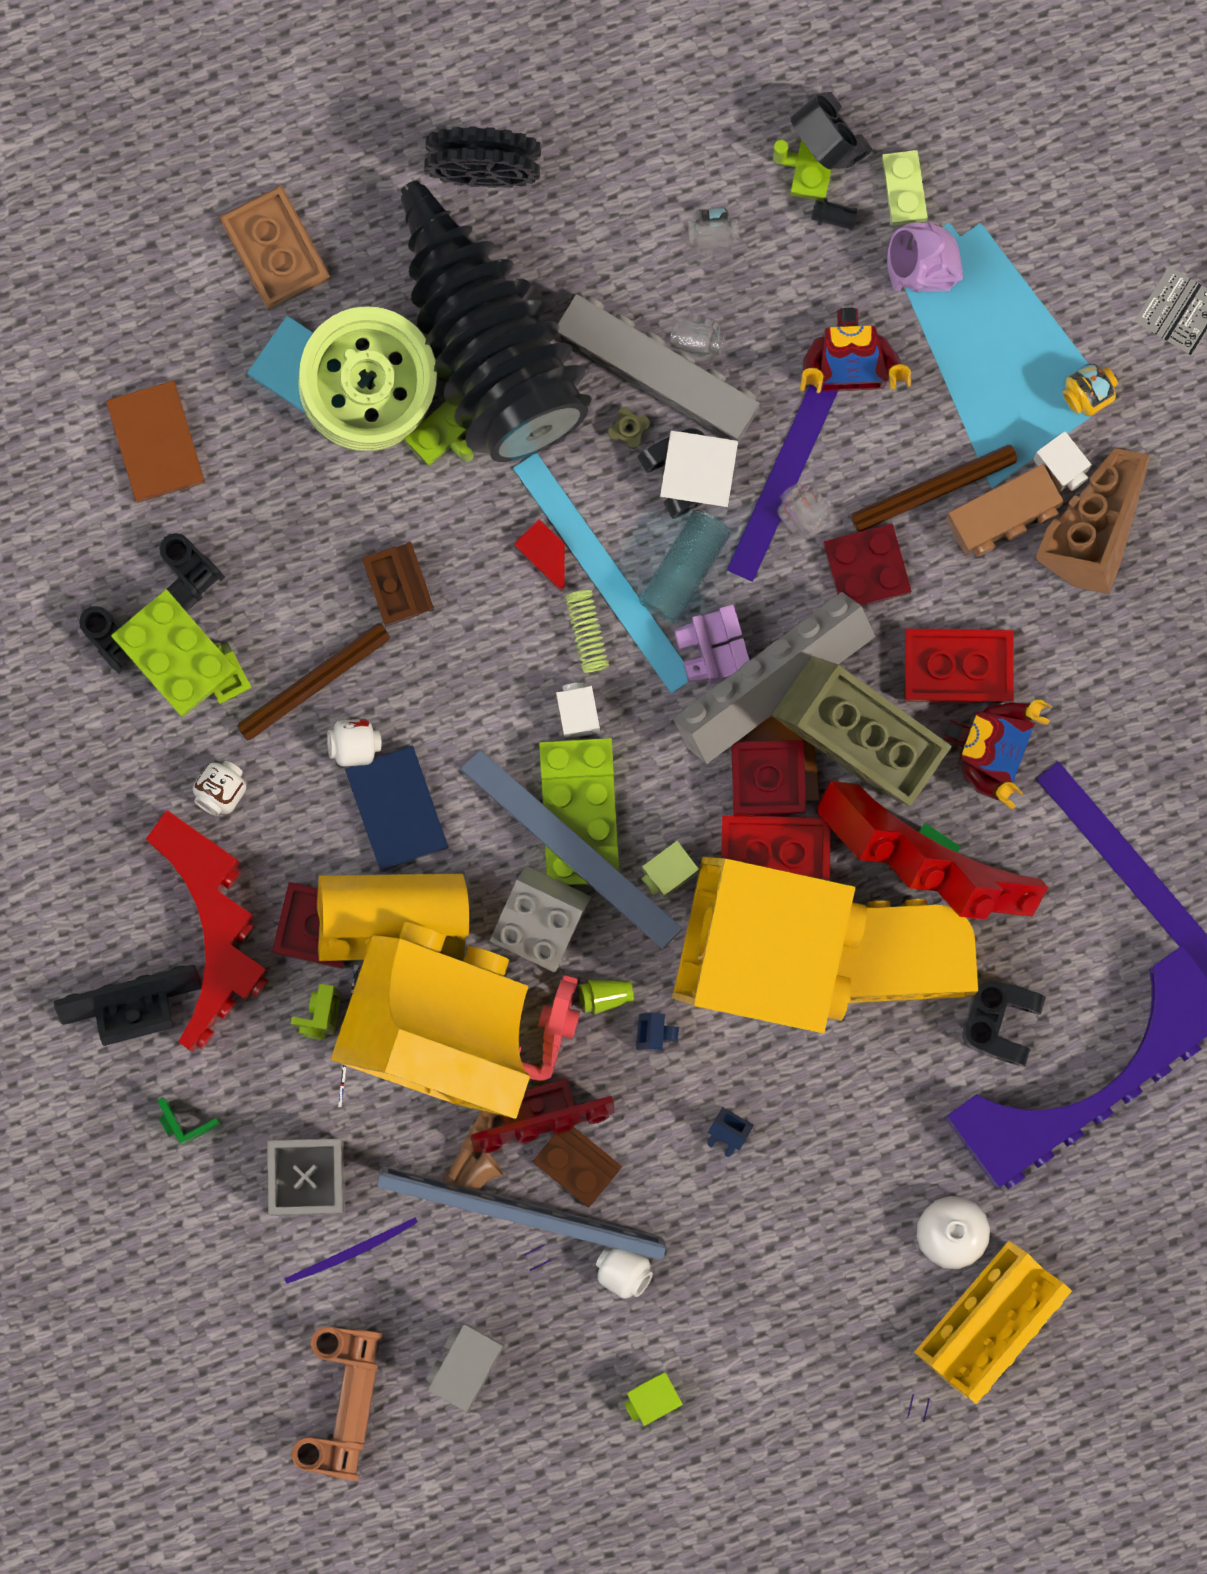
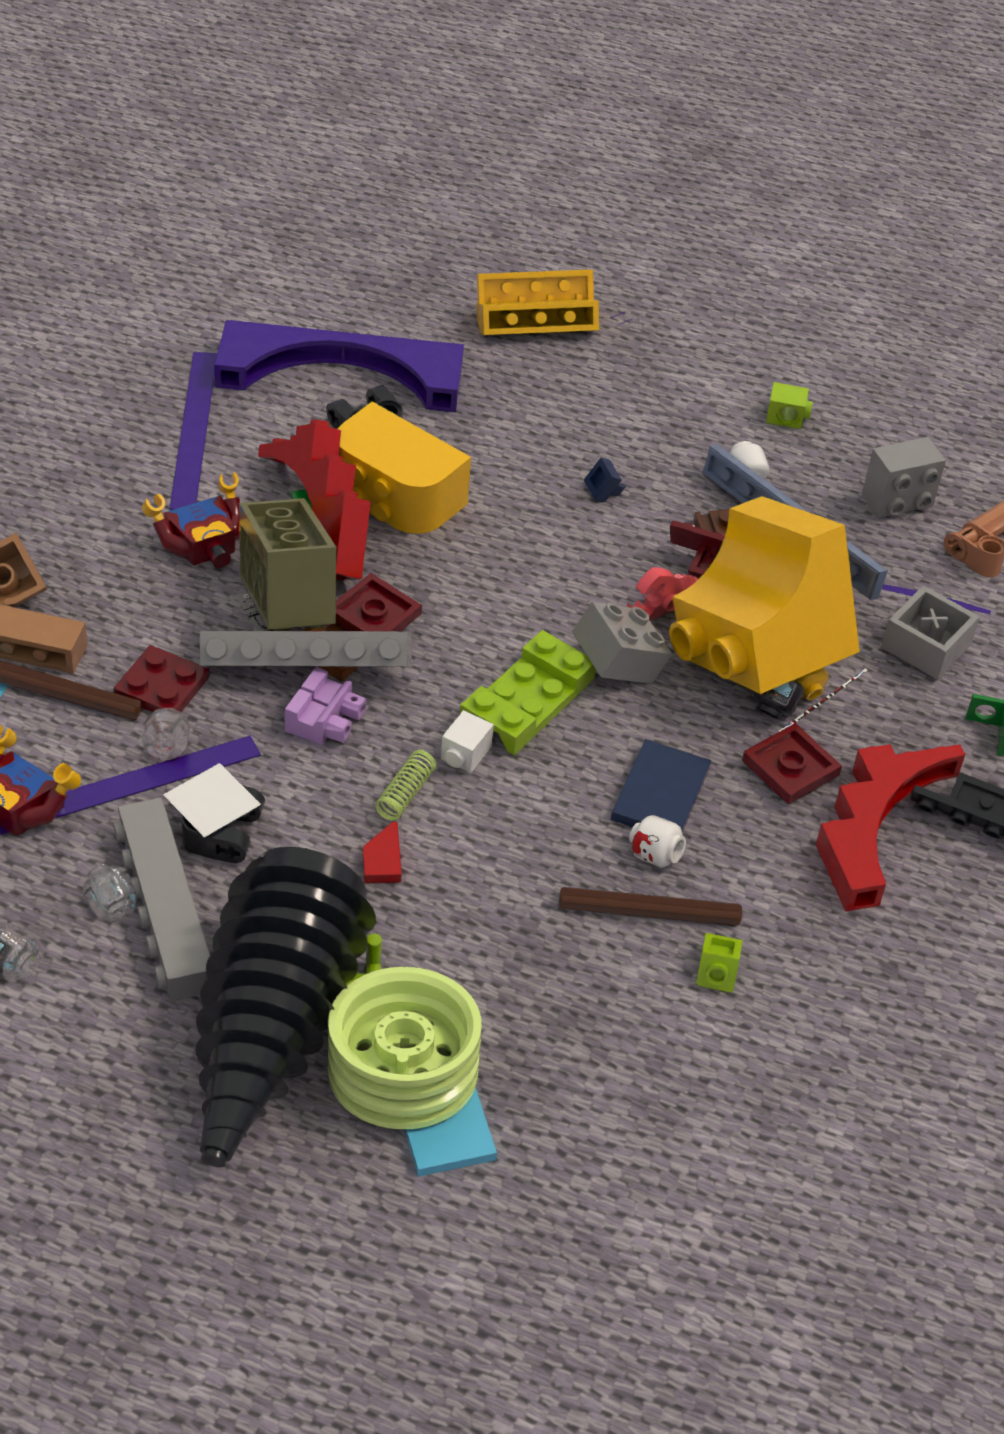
camera: 145 degrees left, 35 degrees down
(155, 441) = (625, 1167): dark orange tile -> none
(174, 653) = (754, 979): lime plate -> none
(194, 576) = (685, 1040): black piece -> none
(219, 788) = (793, 885): white head -> none
(274, 248) = (374, 1237): medium nougat tile -> none
(325, 1008) = (839, 697): lime bracket -> none
(368, 905) = (729, 713): yellow brick -> none
(398, 584) = (520, 915): reddish brown plate -> none
(482, 157) = (131, 1118): black piece -> none
(572, 849) = (559, 667): sand blue piece -> none
(602, 995) = (615, 591): lime cone -> none
(603, 571) = (357, 790): medium azure piece -> none
(633, 437) = (220, 879): olive plate -> none
(653, 1033) = (603, 553): dark blue tile -> none
(668, 871) = (499, 619): yellowish green brick -> none
(690, 559) = (282, 766): clear light blue piece -> none
(768, 944) = (491, 503): yellow brick -> none
(779, 843) = (421, 580): red plate -> none
(953, 1232) = (513, 358): white cylinder -> none
(959, 666) = (170, 587): red plate -> none

